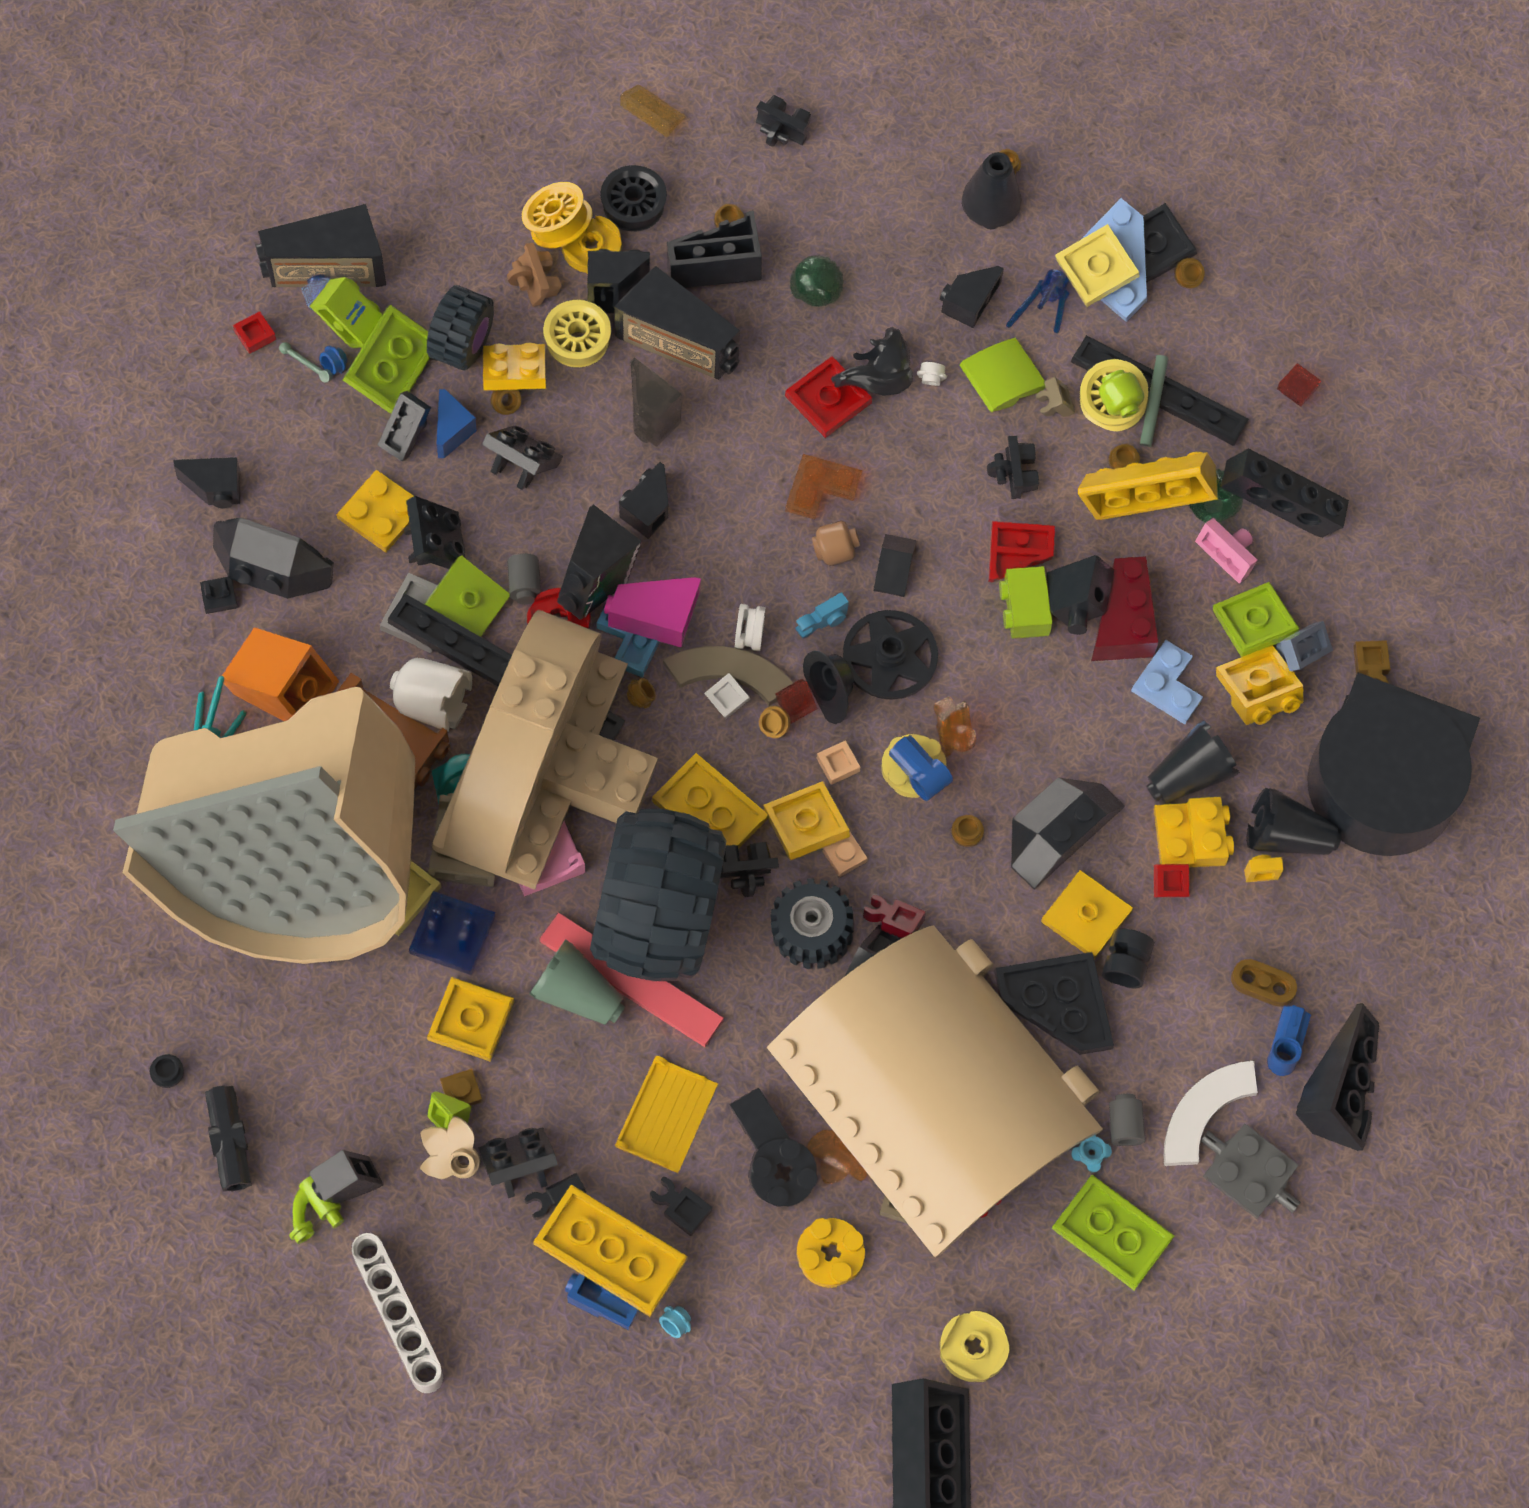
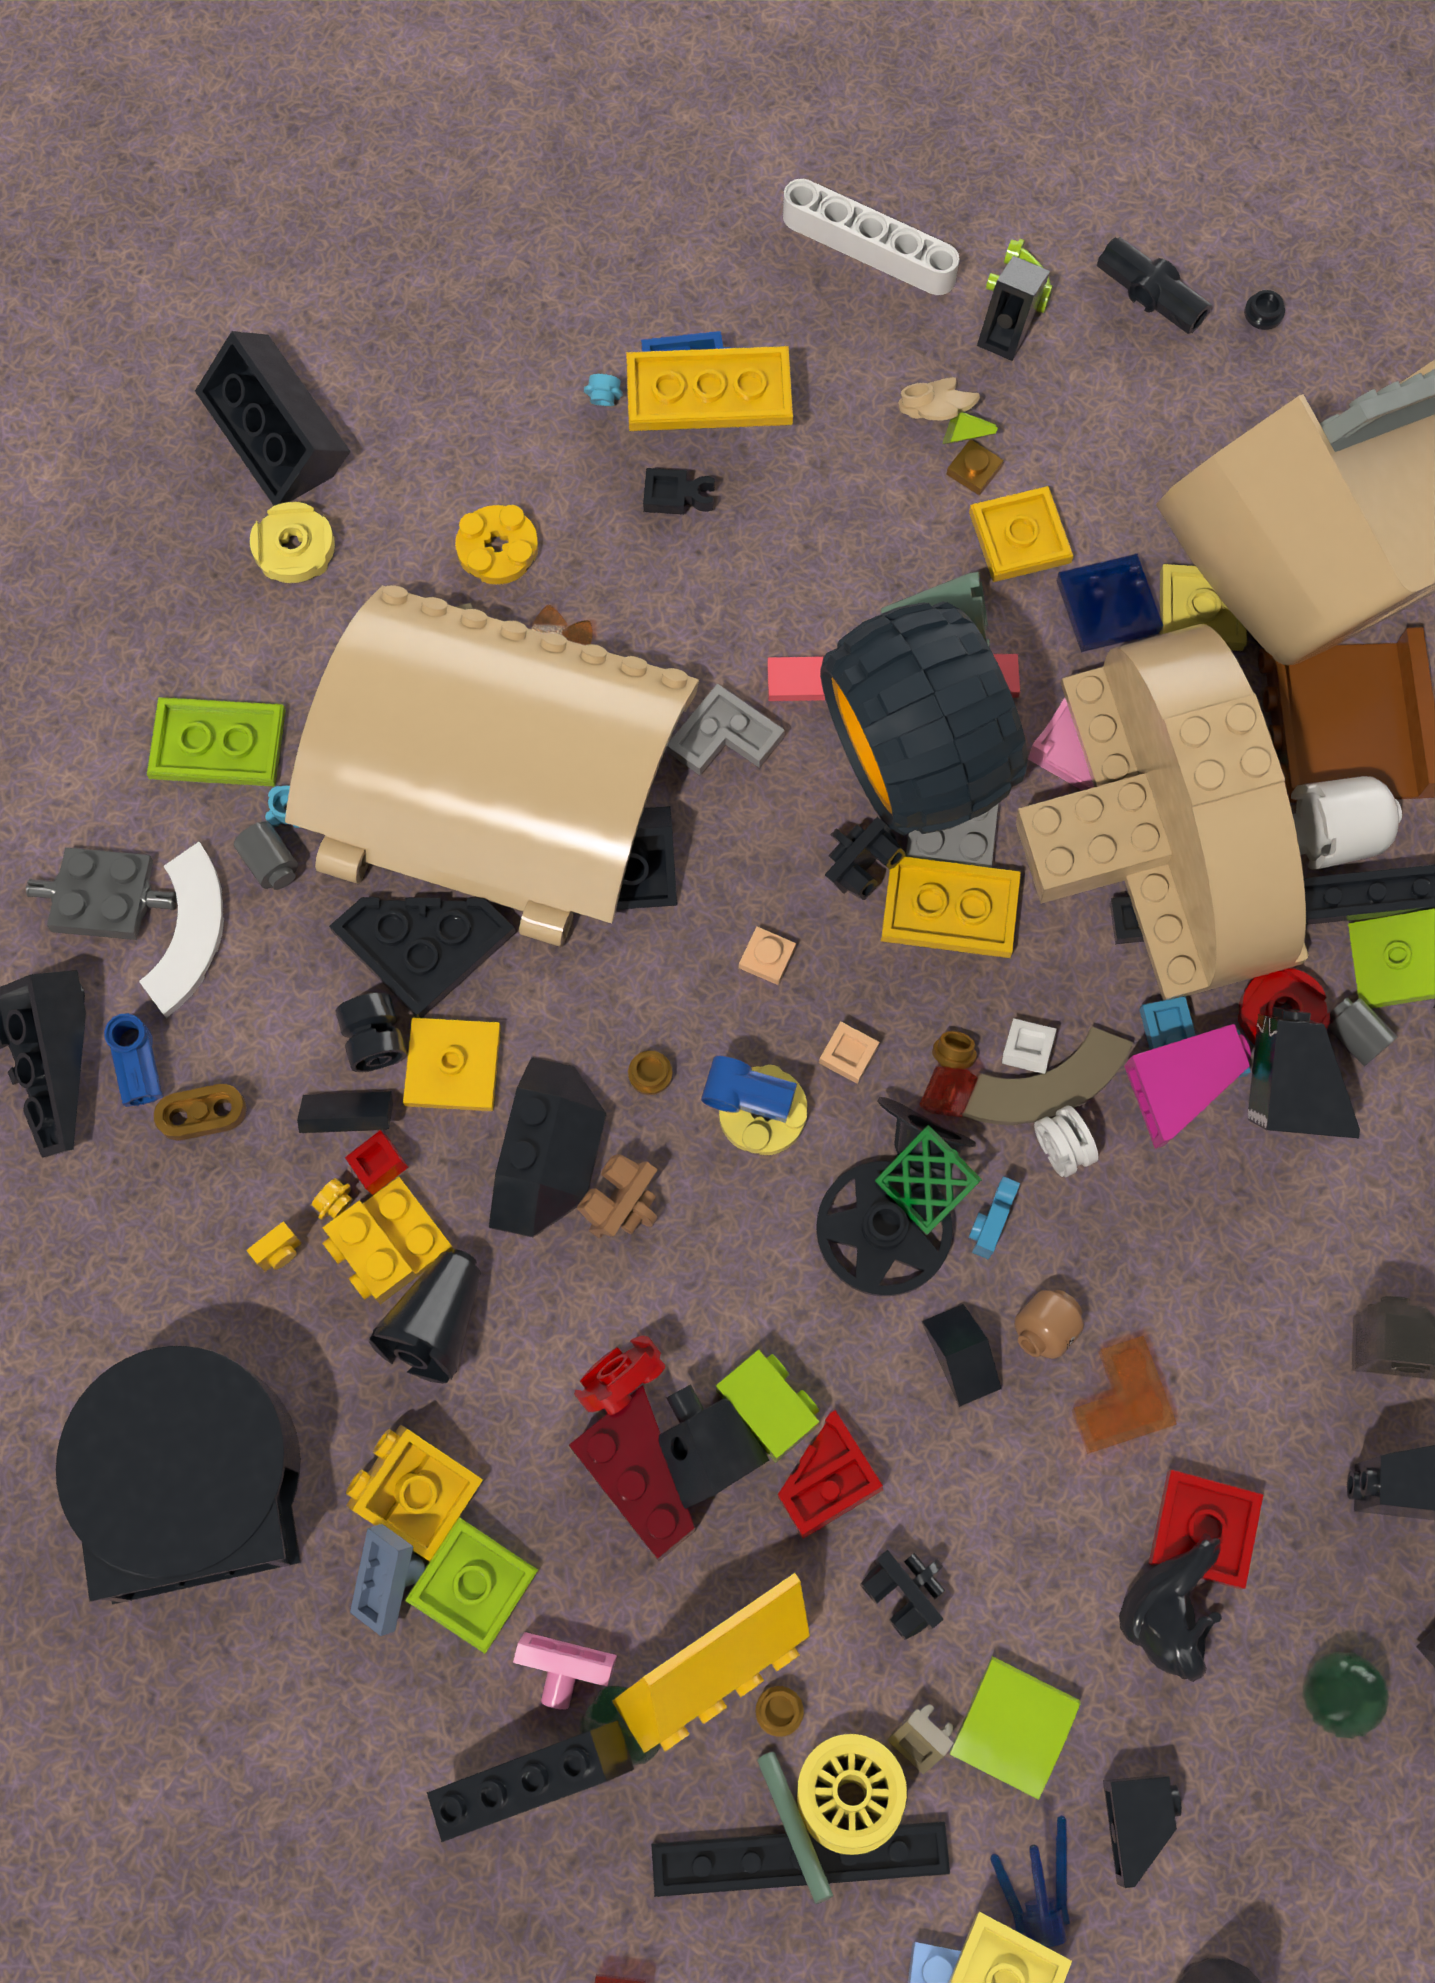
camera: 150 degrees right, 5 degrees up
(518, 1157) = (867, 423): black plate -> none
(553, 1194) = (804, 429): black bar -> none
(641, 693) = (1118, 992): pearl gold plate -> none
(647, 504) = (1301, 1224): black slope -> none
(666, 1114) = (757, 574): yellow piece -> none
(757, 1118) = (653, 611): black slope -> none
(760, 1014) = (720, 722): none -> light grey plate
(788, 1153) = (588, 563): black plate -> none
(806, 820) = (834, 956): yellow plate -> none
(812, 923) = (751, 860): black wheel -> none
(869, 673) = (950, 1156): none -> green window
(896, 919) = (655, 916): dark red plate -> none
(932, 373) = (1104, 1660): white plate -> none
(954, 726) = (742, 1169): clear orange hips -> none
(1035, 762) = (609, 1213): none -> medium nougat hips
(1095, 652) = (618, 1374): none -> red plate
(1121, 393) = (837, 1780): lime head -> none
(1160, 685) = (540, 1413): light blue plate -> none
(1172, 923) = (345, 1112): none -> black tile
(1209, 874) = (332, 1199): none -> yellow plate
(1289, 827) = (270, 1314): black cone -> none
(1372, 659) = (290, 1628): pearl gold plate -> none

